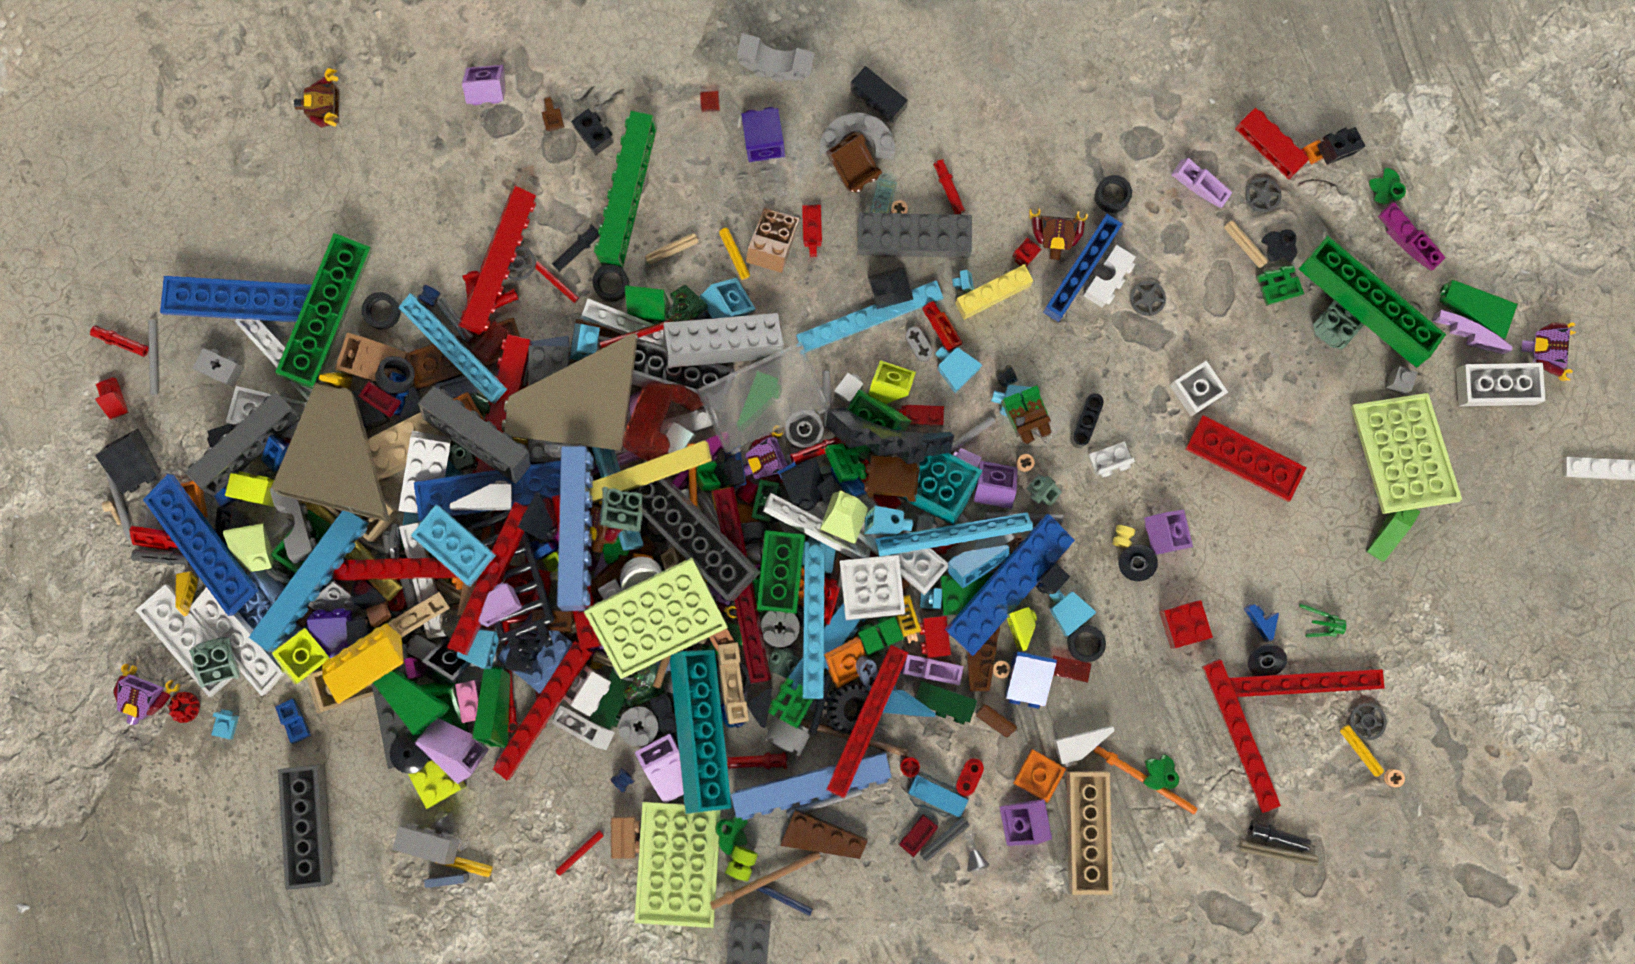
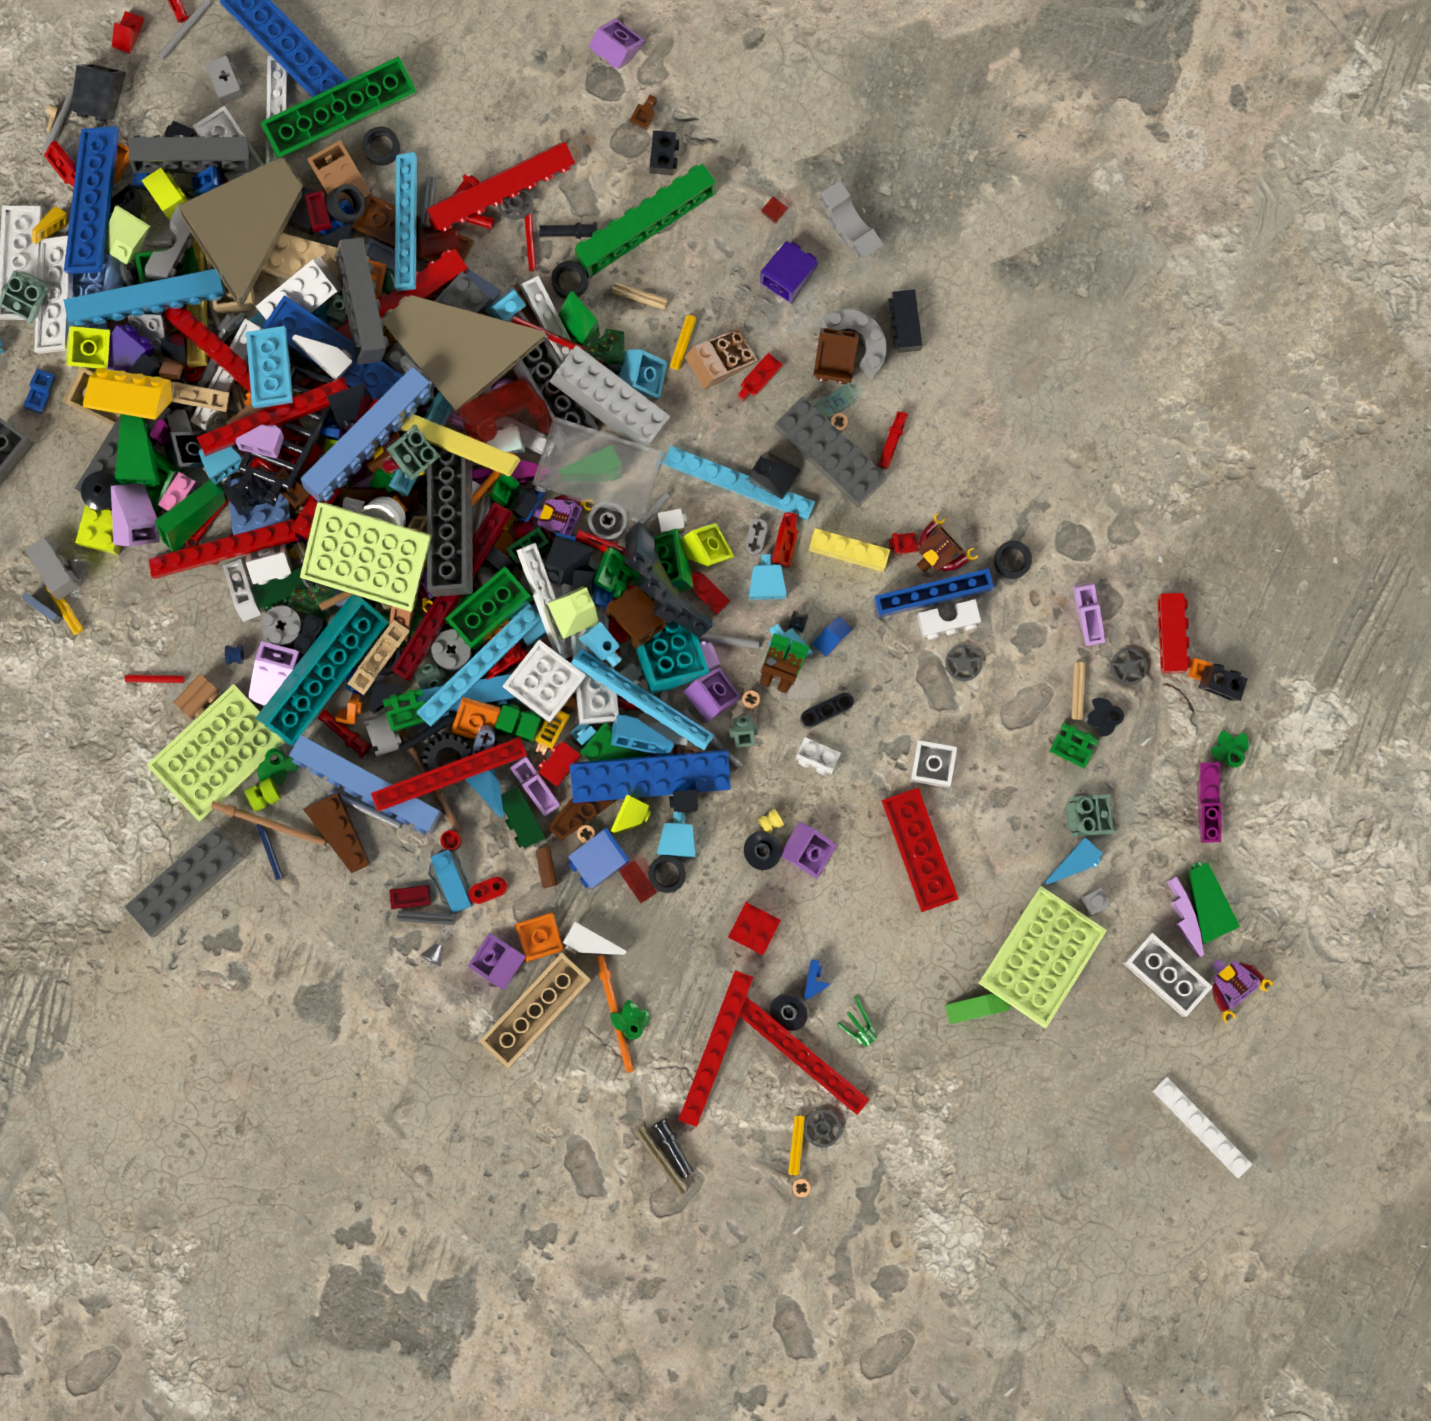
camera: 40 degrees right, 0 degrees up
(169, 557) = (61, 190): dark grey pin -> none
(337, 380) = (301, 168): yellow slope -> none
(428, 295) = (426, 166): dark blue wheel -> none
(749, 745) = (350, 715): none -> orange bracket
(964, 282) = (835, 522): medium azure tile -> none
(1039, 364) = (832, 636): none -> blue slope
(1361, 361) = (1079, 859): none -> dark azure slope
(1372, 302) = (1128, 821): green brick -> none

